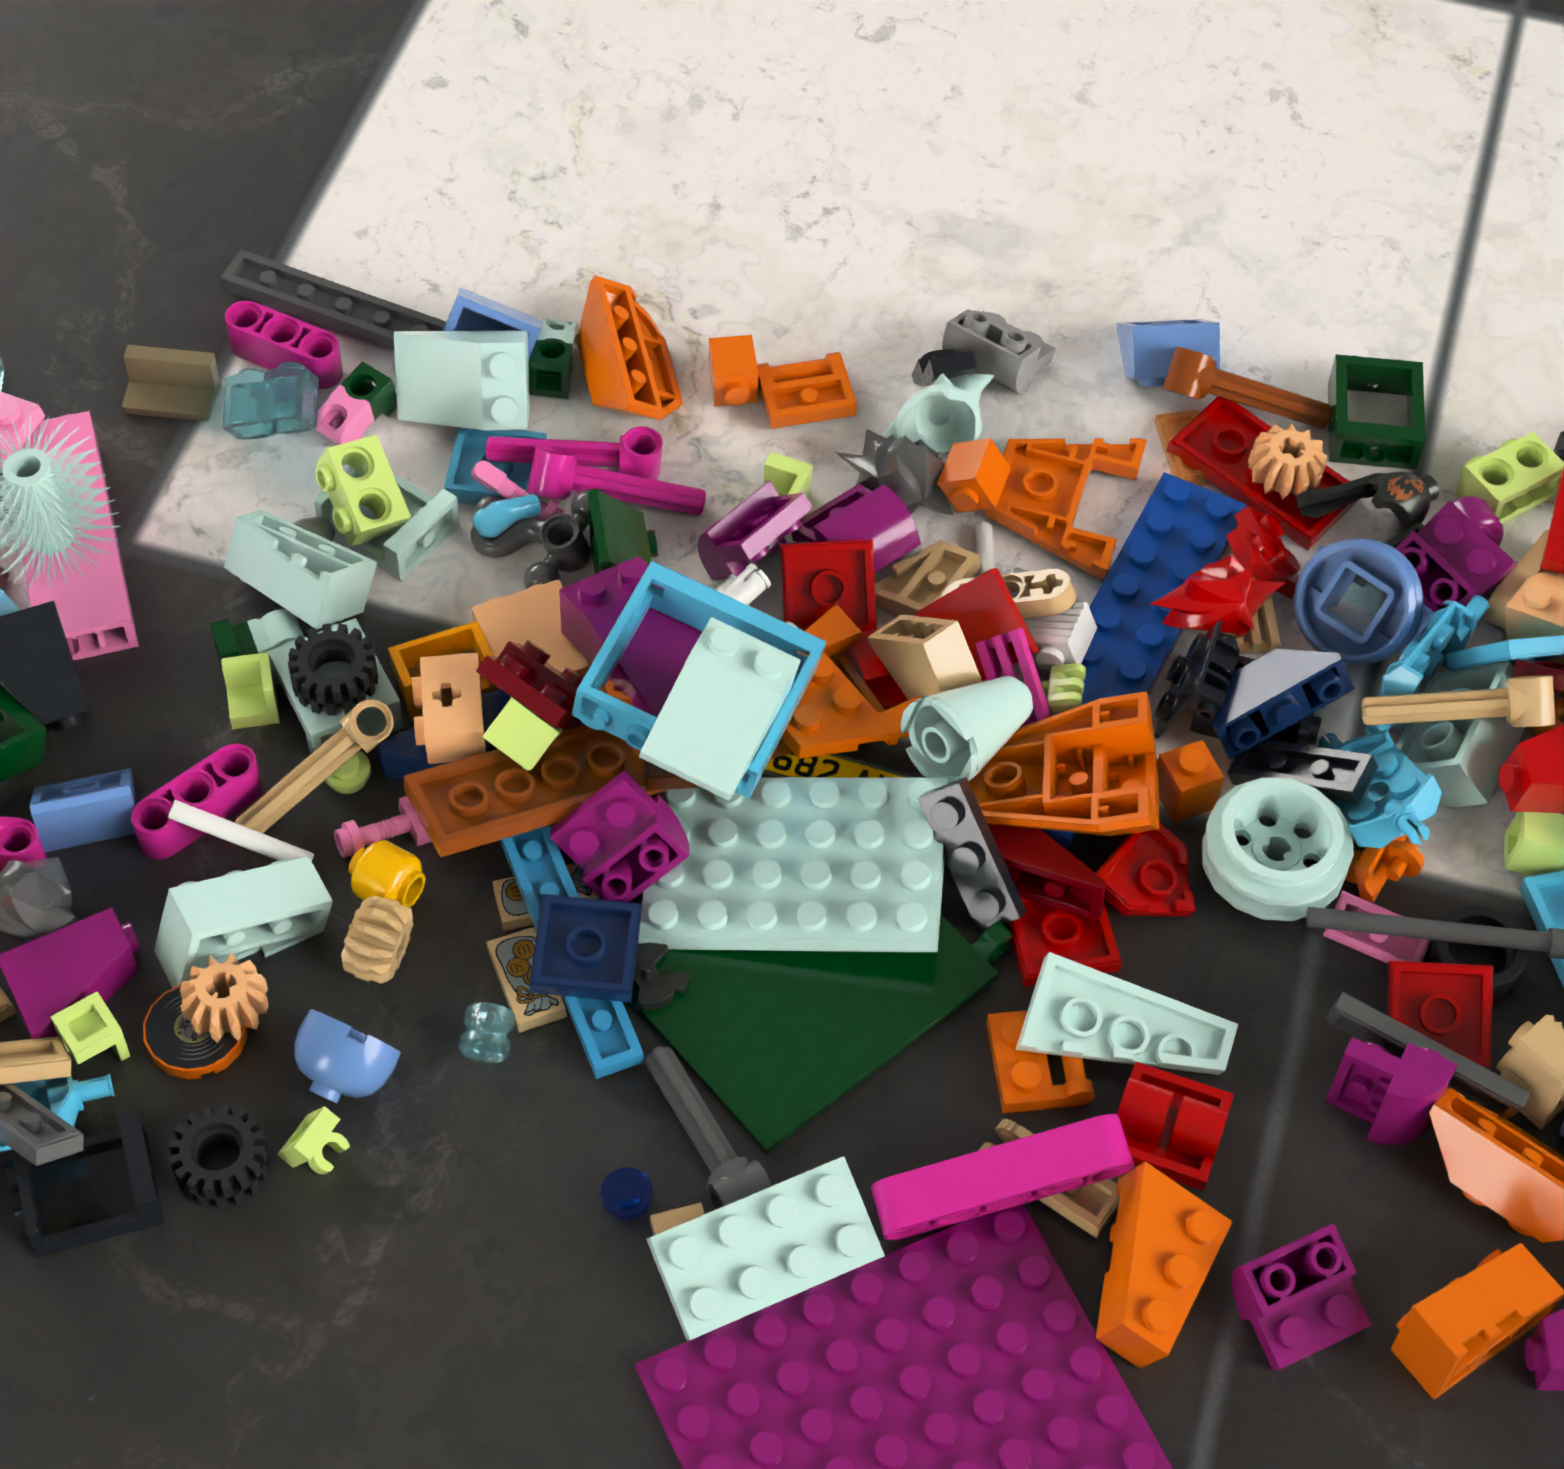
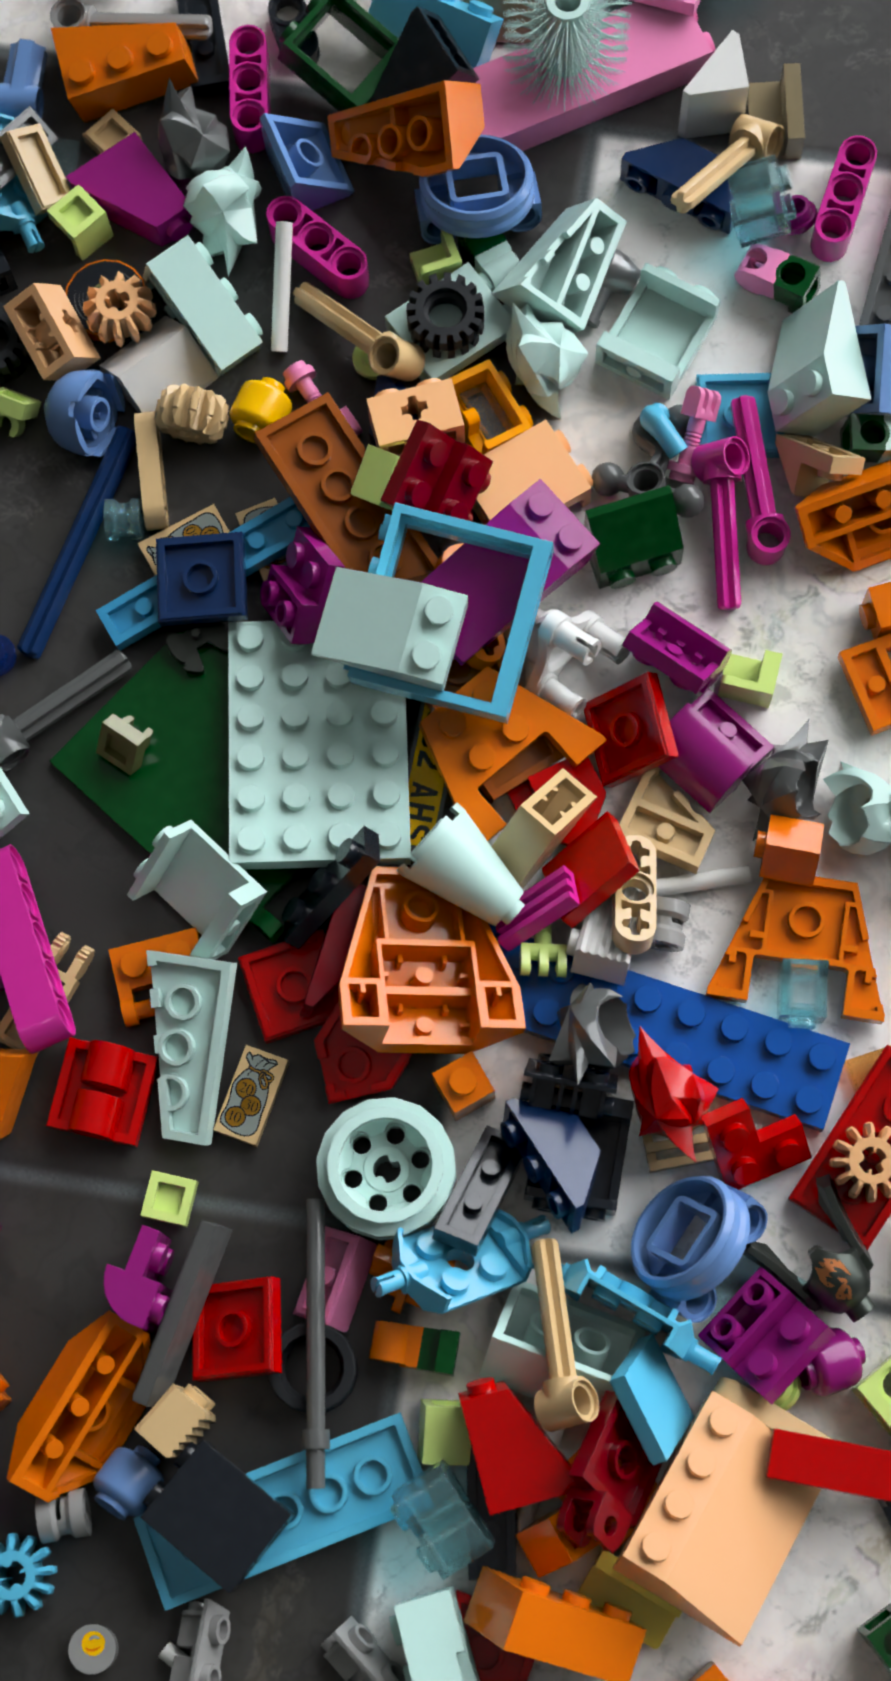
camera: 90 degrees right, 20 degrees up
(108, 660) = (412, 131): none -> orange wedge
(122, 876) = (224, 207): none -> light aqua hair
(134, 410) = (716, 92): none -> white slope
(192, 663) = (482, 215): none -> medium blue piece
(203, 400) = (748, 141): none -> tan axle
(225, 463) = (667, 167): none -> dark blue slope
(234, 1072) = (51, 331): none -> light nougat brick
(302, 975) = (159, 360): none -> white slope
(373, 488) = (661, 307): yellowish green brick -> none
(398, 601) = (543, 356): none -> light aqua hair
(424, 997) = (151, 471): none -> tan beam
(503, 1091) = (77, 544): none -> dark blue axle
(561, 408) = (814, 462): none -> tan slope
(767, 1054) = (123, 743): none -> olive tile
(954, 985) = (200, 886): none -> light aqua panel
(1112, 499) = (802, 992): none -> clear light blue window
(1151, 645) = (593, 1031): none -> dark grey hair
(1181, 980) = (251, 1096): none -> tile
(1292, 1071) = (169, 1198): none -> yellowish green plate
(1456, 855) = (415, 1347): none -> leg

